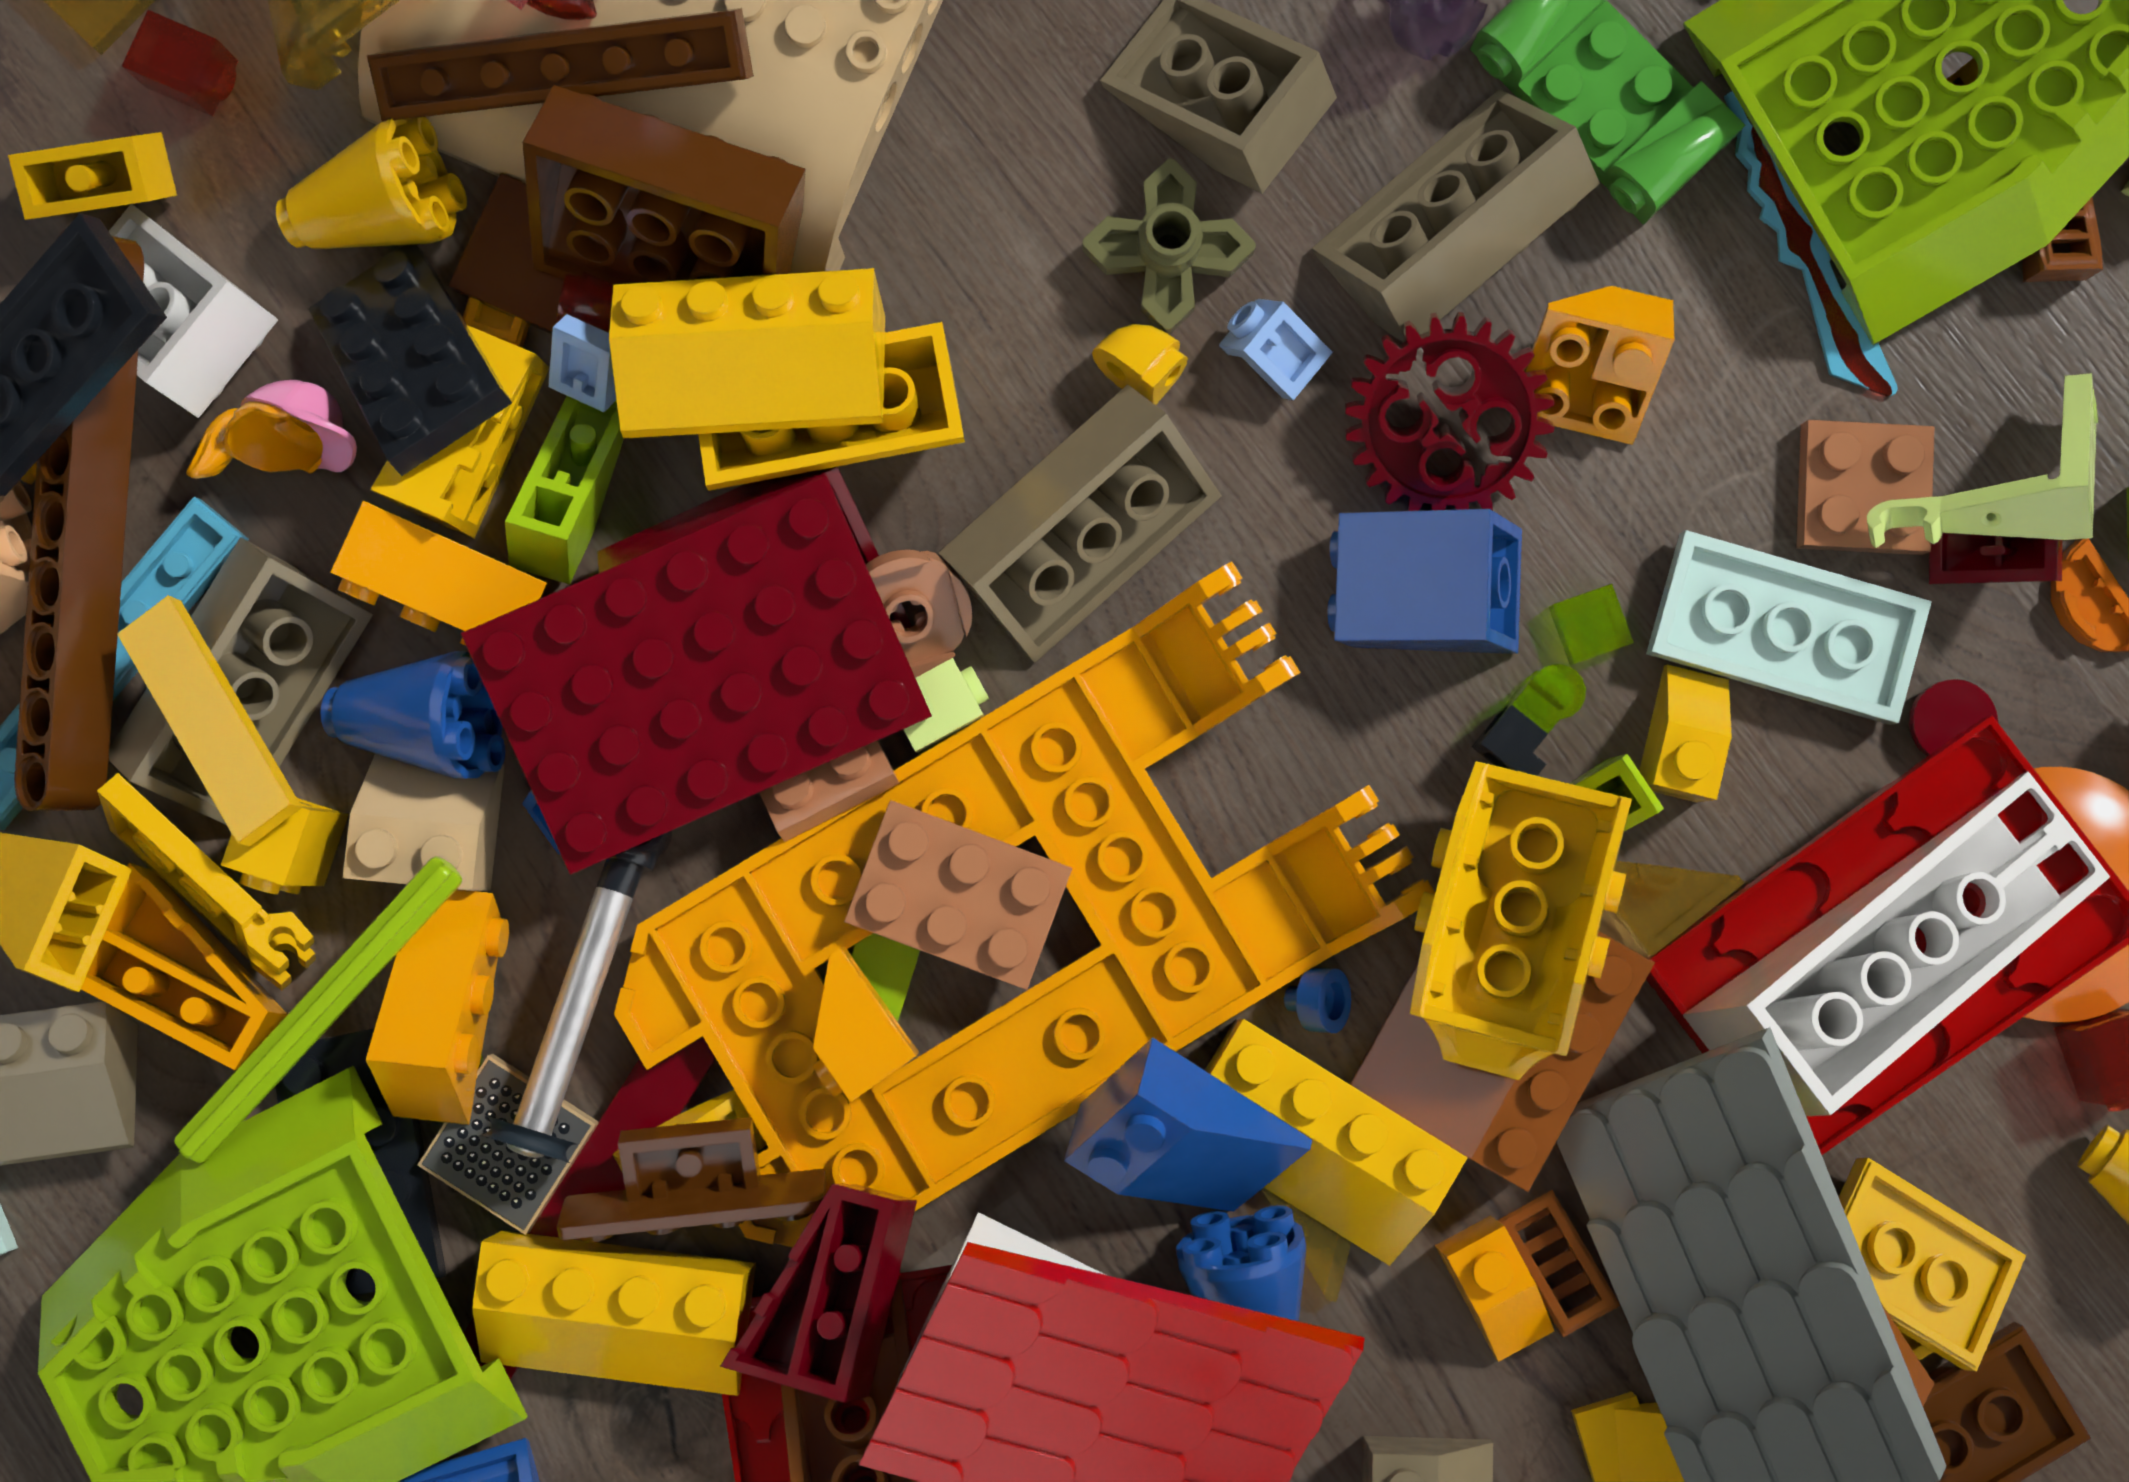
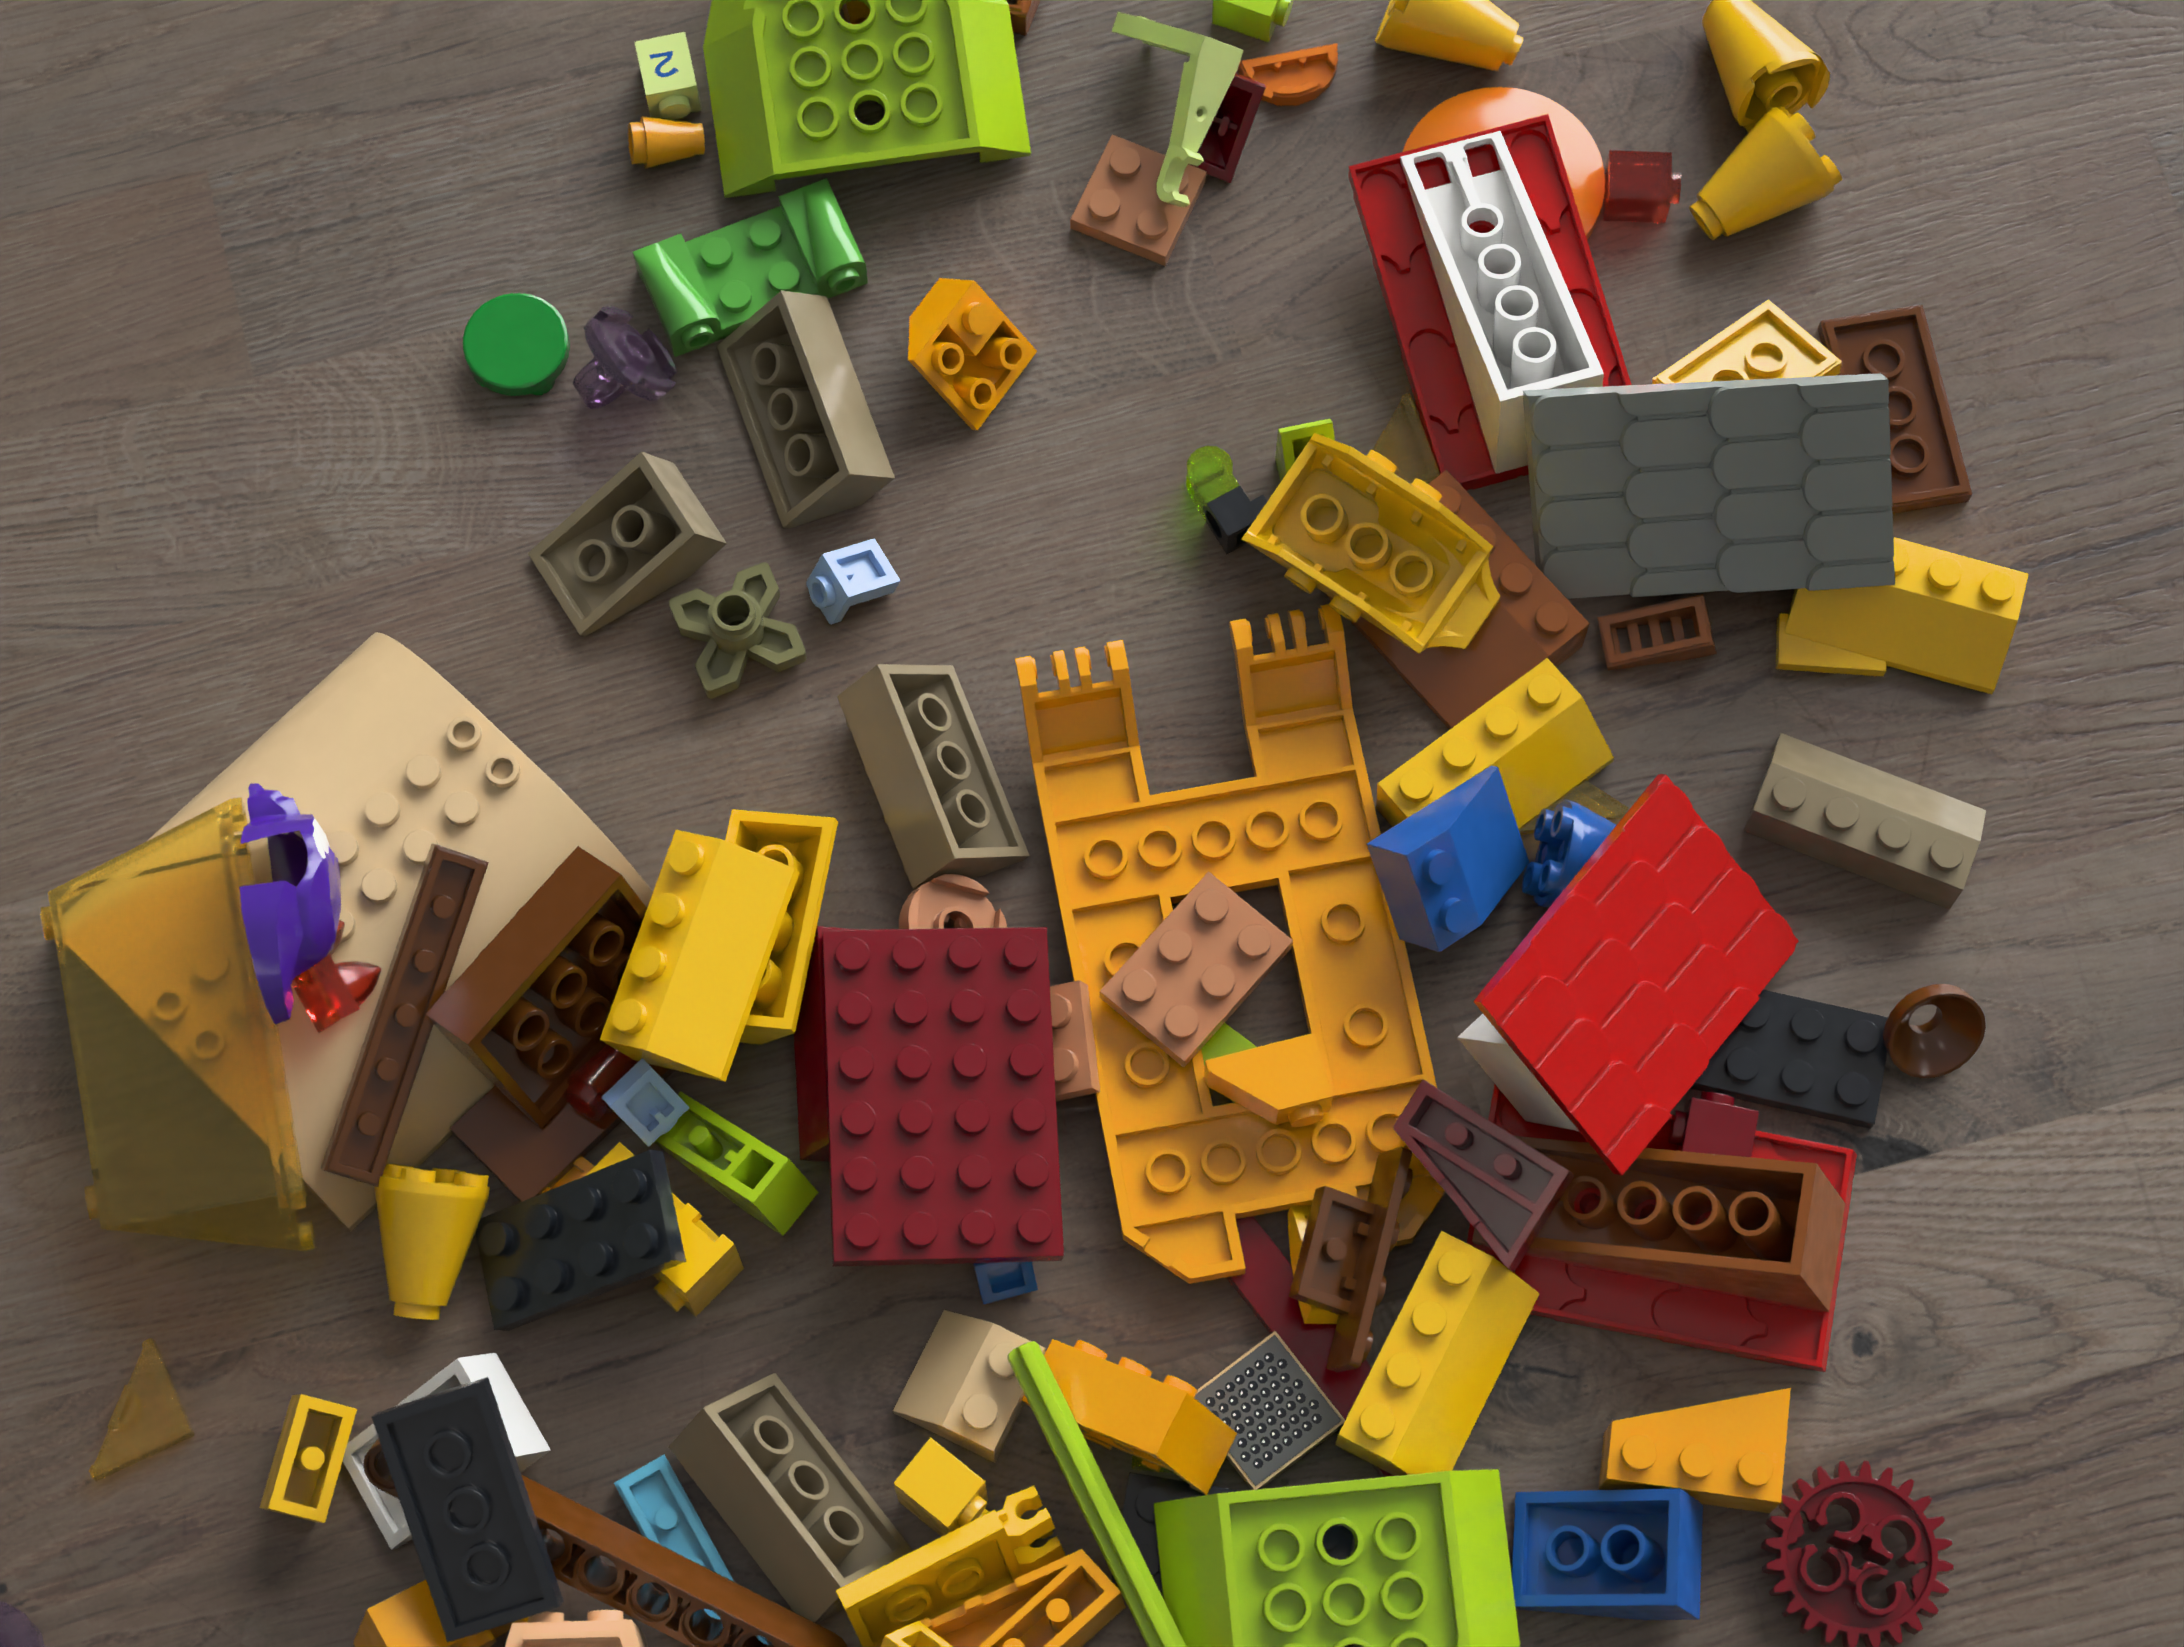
camera: 70 degrees left, 15 degrees down
(181, 63) = (242, 1356): clear red brick -> none
(209, 721) = (822, 1494): yellow tile -> none
(278, 430) = (591, 1381): light orange hair -> none
(421, 715) = (878, 1349): blue cone -> none
(427, 573) = (762, 1301): light orange wedge -> none
(576, 1004) = (1262, 1366): flat silver piece -> none
(952, 702) = (1038, 910): yellowish green brick -> none
(1141, 358) = (817, 683): yellow piece -> none
(1320, 1000) = (1384, 732): blue tile -> none
(1427, 581) = (1084, 534): blue slope -> none
(1495, 382) = (977, 513): dark red gear -> none
(1496, 1287) = (1657, 682): light orange slope -> none
(1591, 624) = (1165, 431): clear neon green tile -> none
(1688, 735) = (1280, 388): yellow slope -> none
(1789, 627) = (1224, 291): light aqua plate -> none
(1843, 340) = (935, 175): sword -> none
(1945, 711) = (1333, 205): dark red piece -> none

